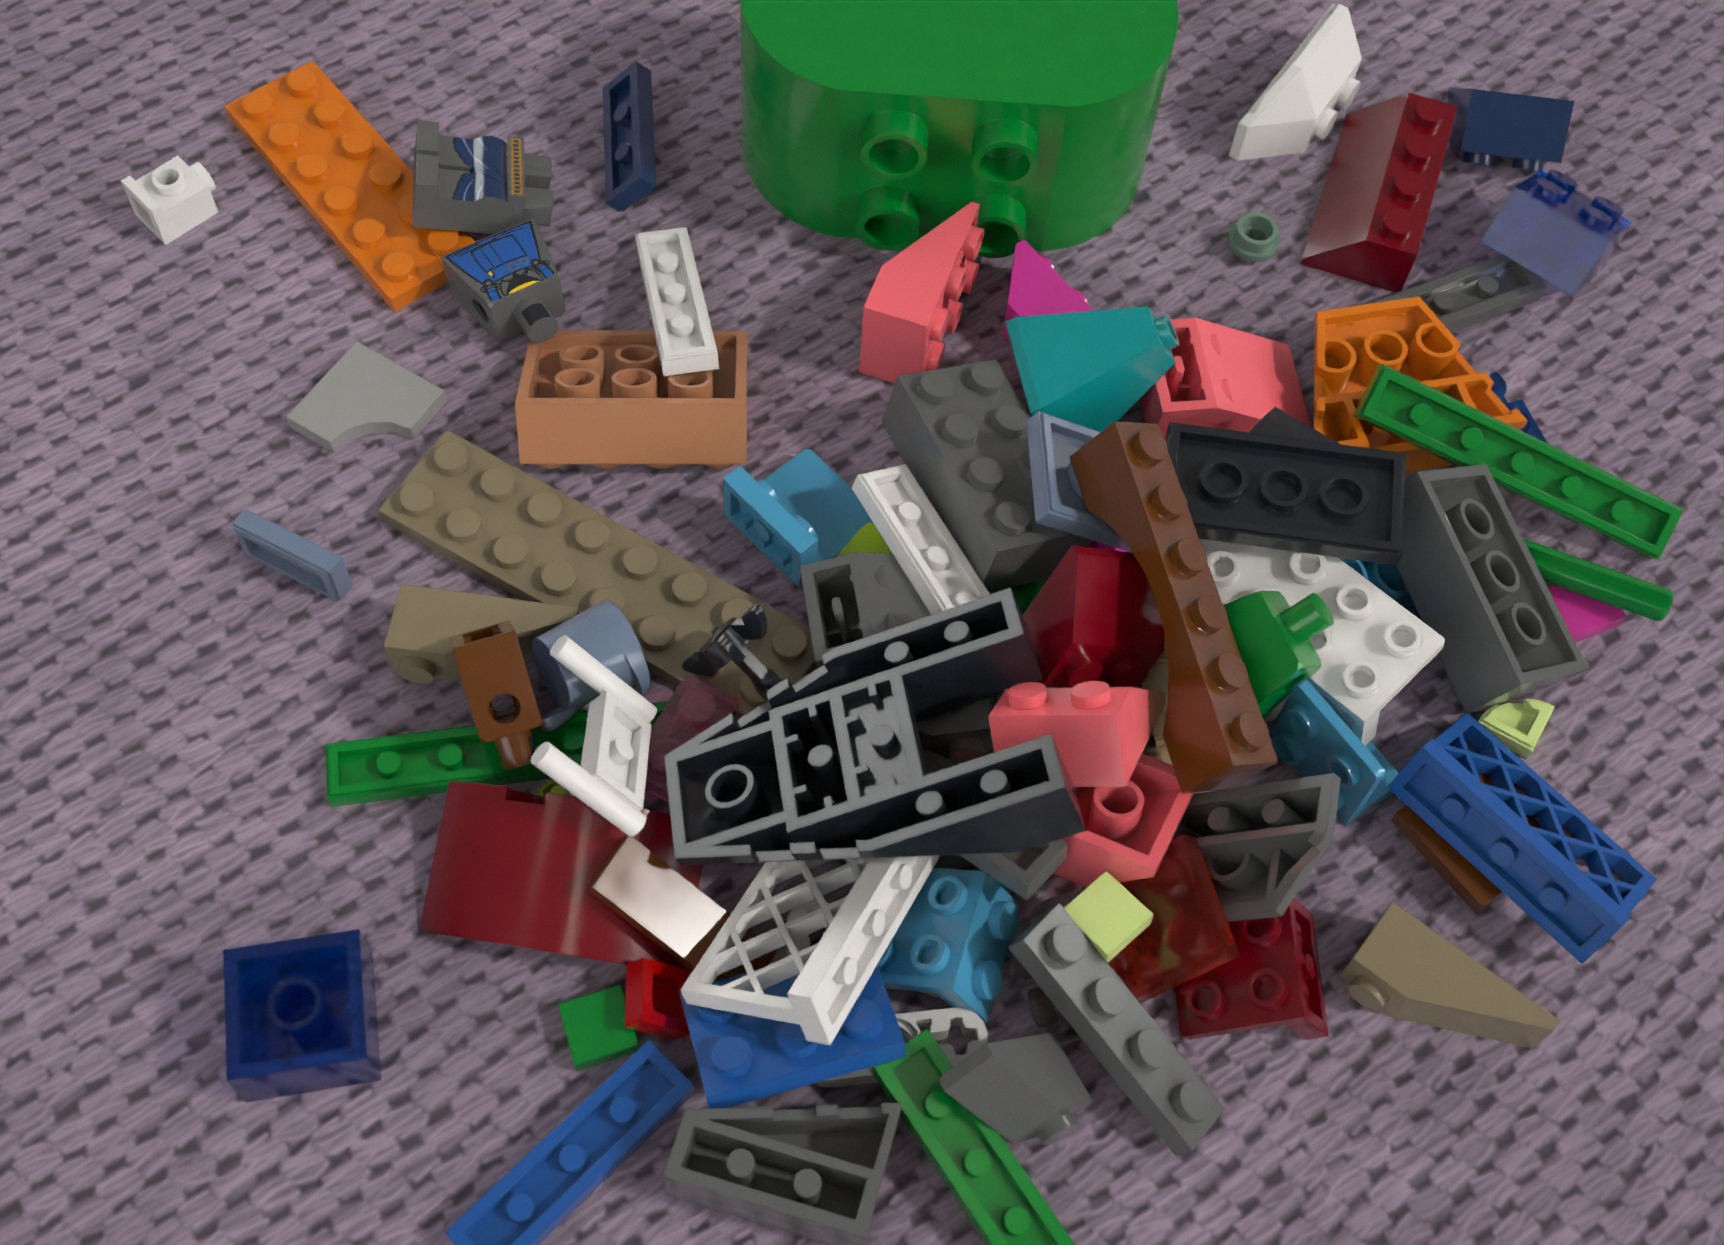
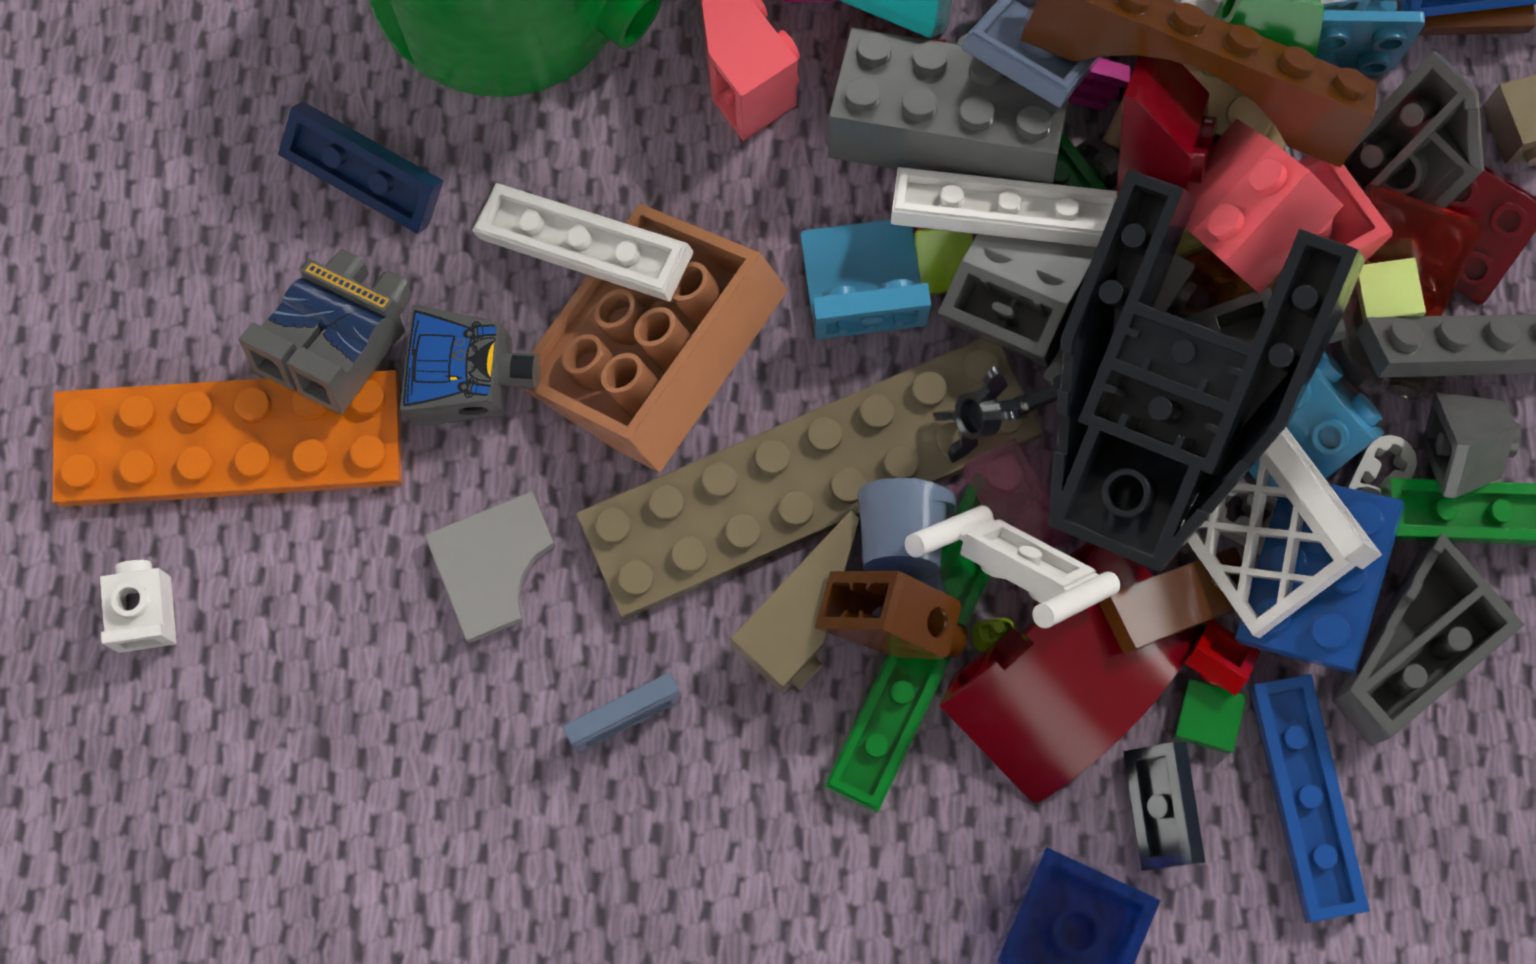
camera: 50 degrees left, 15 degrees up
(479, 1032) = (1164, 806): none -> black plate

